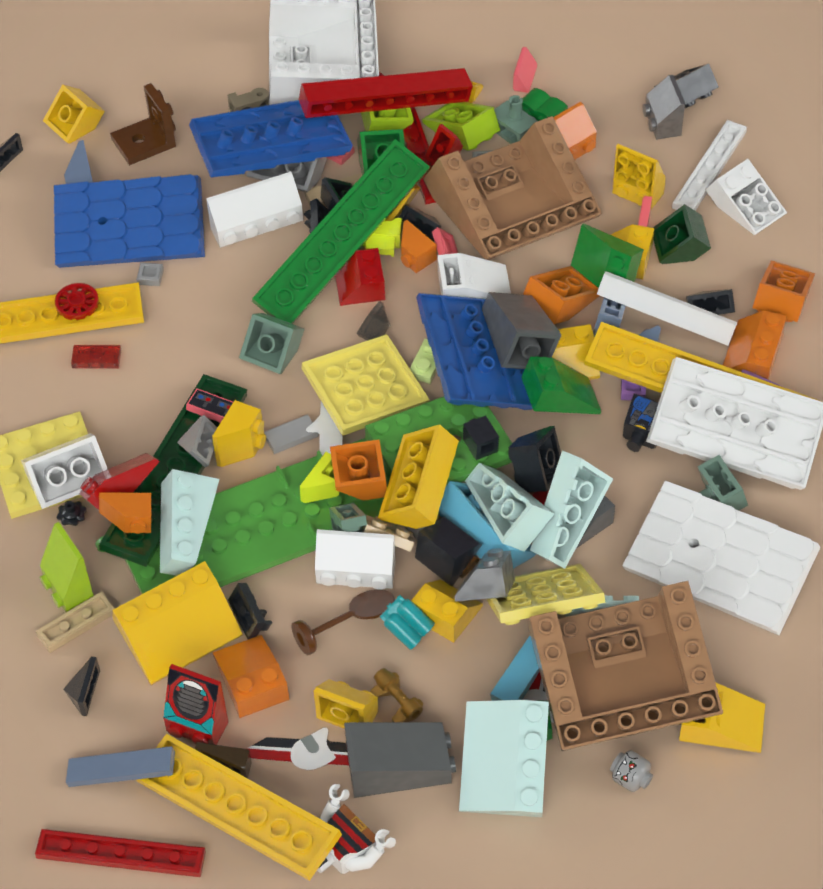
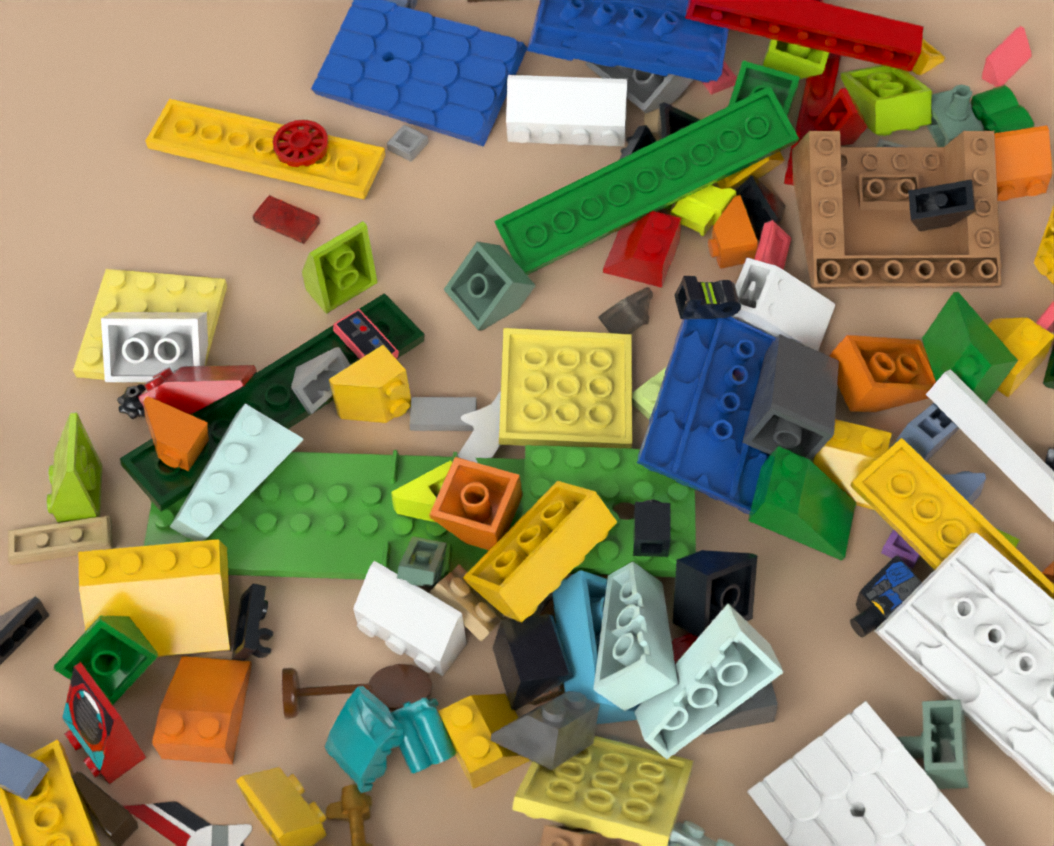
camera: 30 degrees right, 5 degrees up
(164, 654) = (112, 654): none -> green slope
(165, 370) = (340, 268): none -> lime slope
(371, 638) = (364, 738): none -> teal slope
(431, 288) = (706, 299): none -> black leg
(542, 175) = (941, 205): none -> black slope

